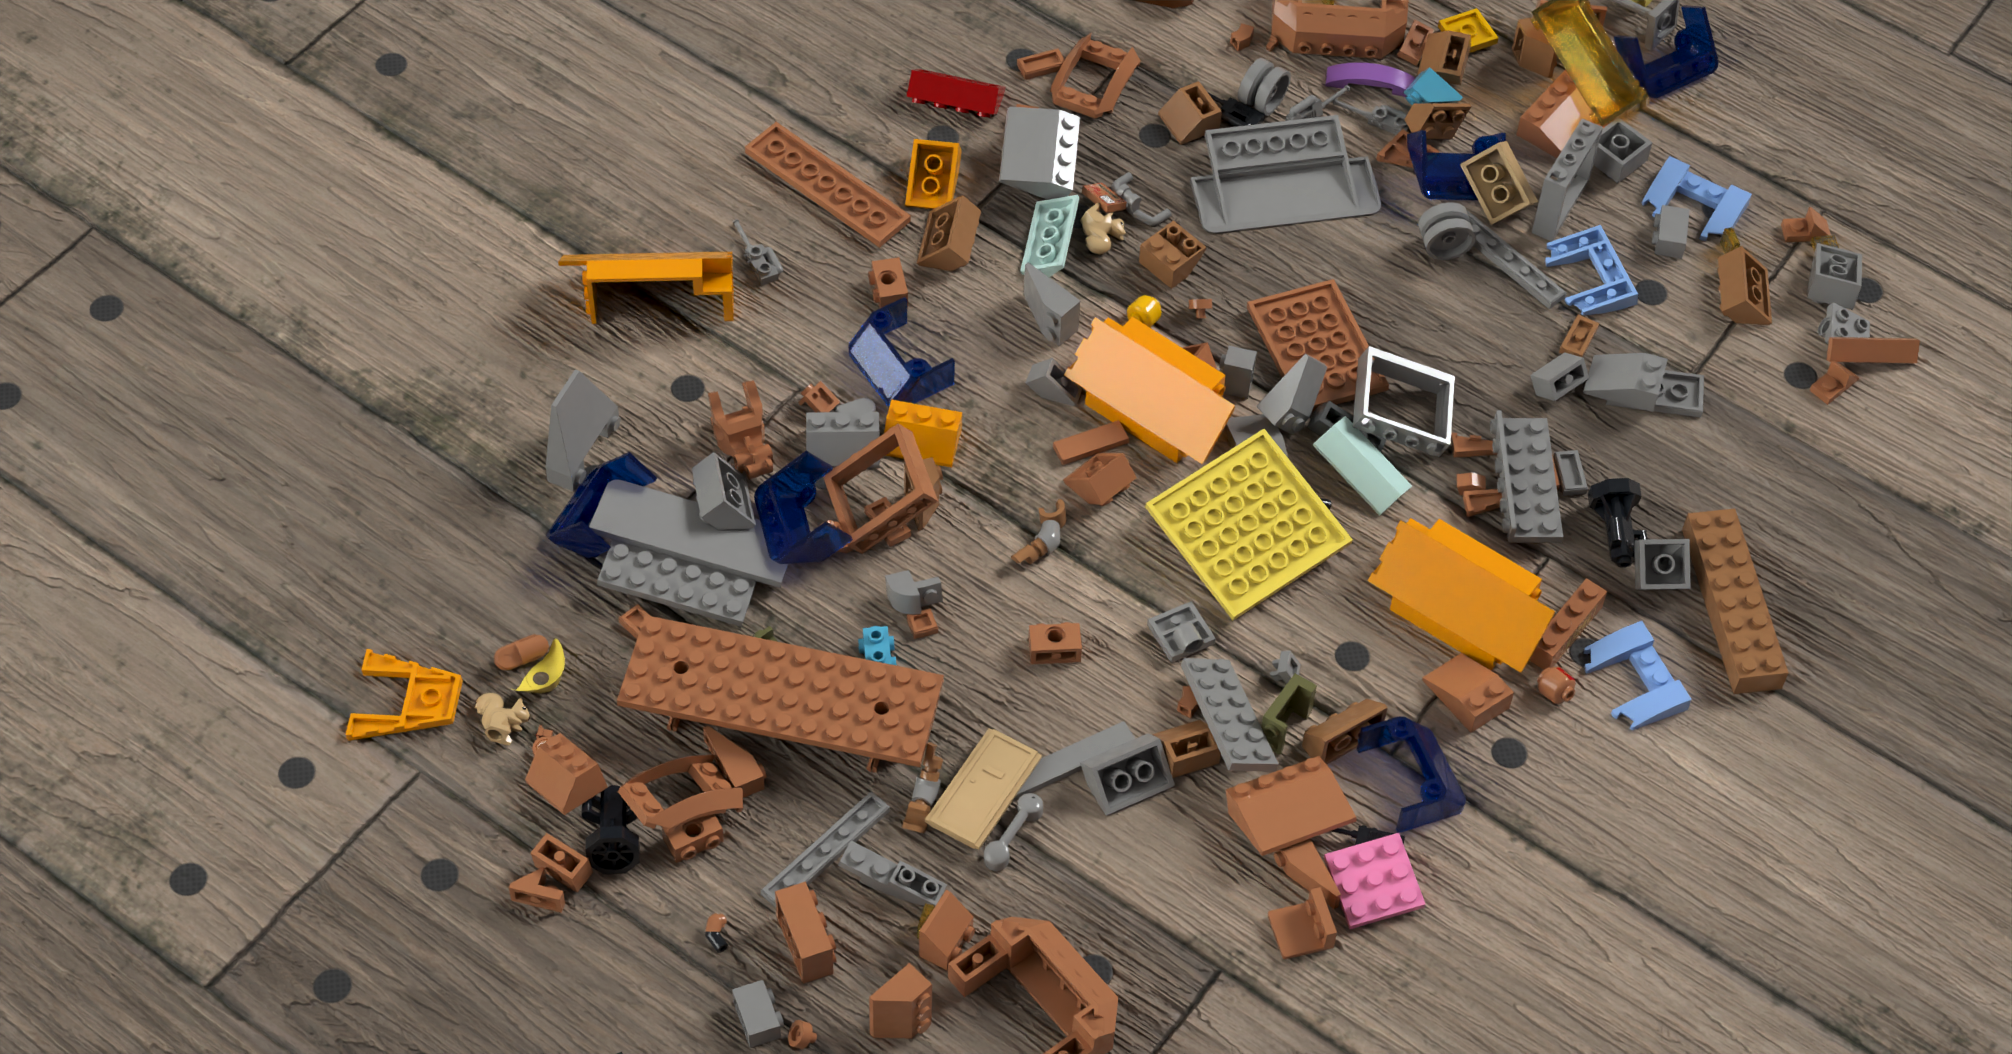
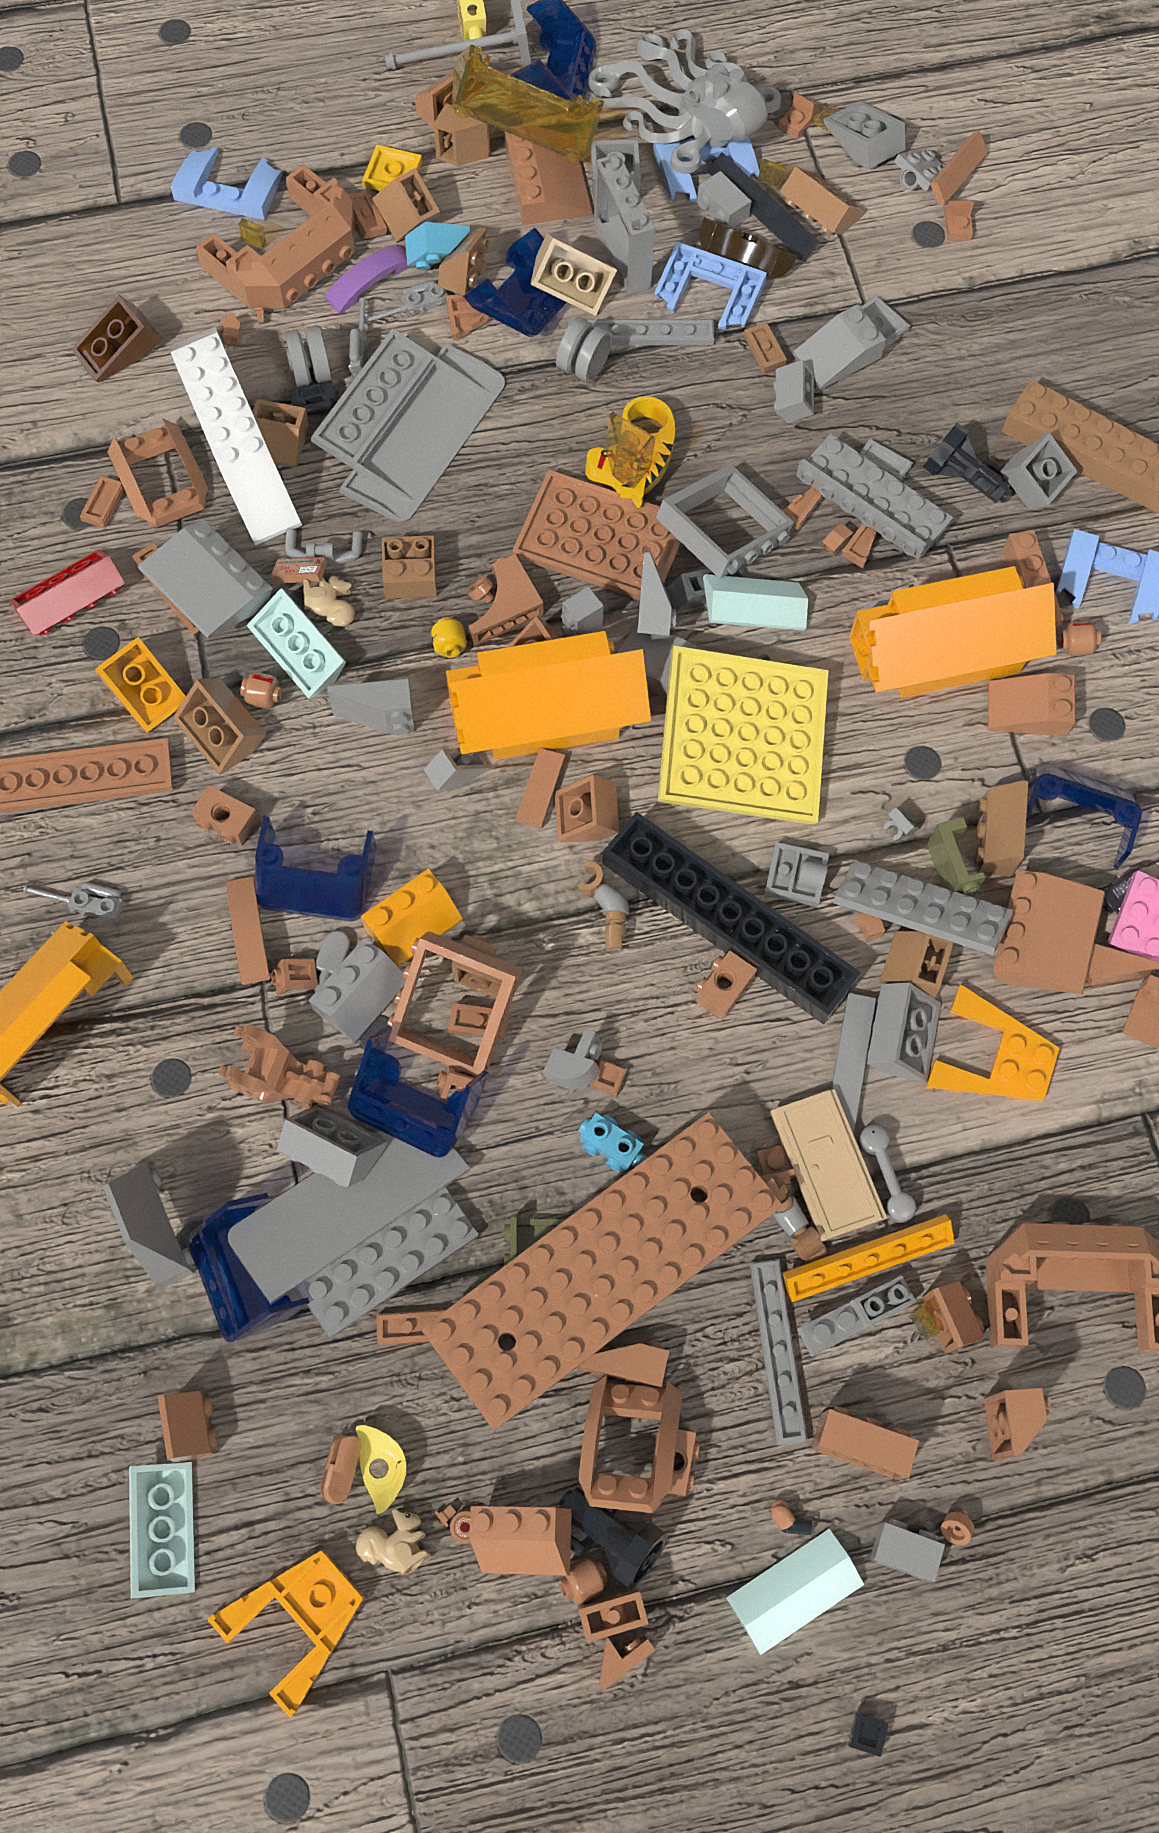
camera: 50 degrees left, 15 degrees up
(398, 585) = (161, 1530): none -> light aqua slope
(472, 548) = (187, 1426): none -> nougat slope
(570, 832) = (585, 1581): none -> nougat head
(671, 969) = (795, 1591): none -> light aqua slope
(819, 355) = (247, 931): none -> nougat slope
(941, 858) = (868, 1258): none -> light orange plate
(953, 760) = (776, 1164): none -> nougat bracket
(996, 240) = (261, 690): none -> nougat head
(1105, 611) = (730, 917): none -> black brick
(1156, 88) = (234, 436): none -> white slope
(1177, 864) = (1021, 1061): none -> light orange wing
(1212, 326) = (513, 605): none -> nougat arch
(1383, 301) = (628, 450): none -> clear yellow slope
(1405, 325) = (597, 460): none -> yellow animal
(1645, 271) = (745, 248): none -> dark brown brick
(1696, 259) = (767, 210): none -> black tile
(1736, 160) = (712, 108): none -> light grey animal

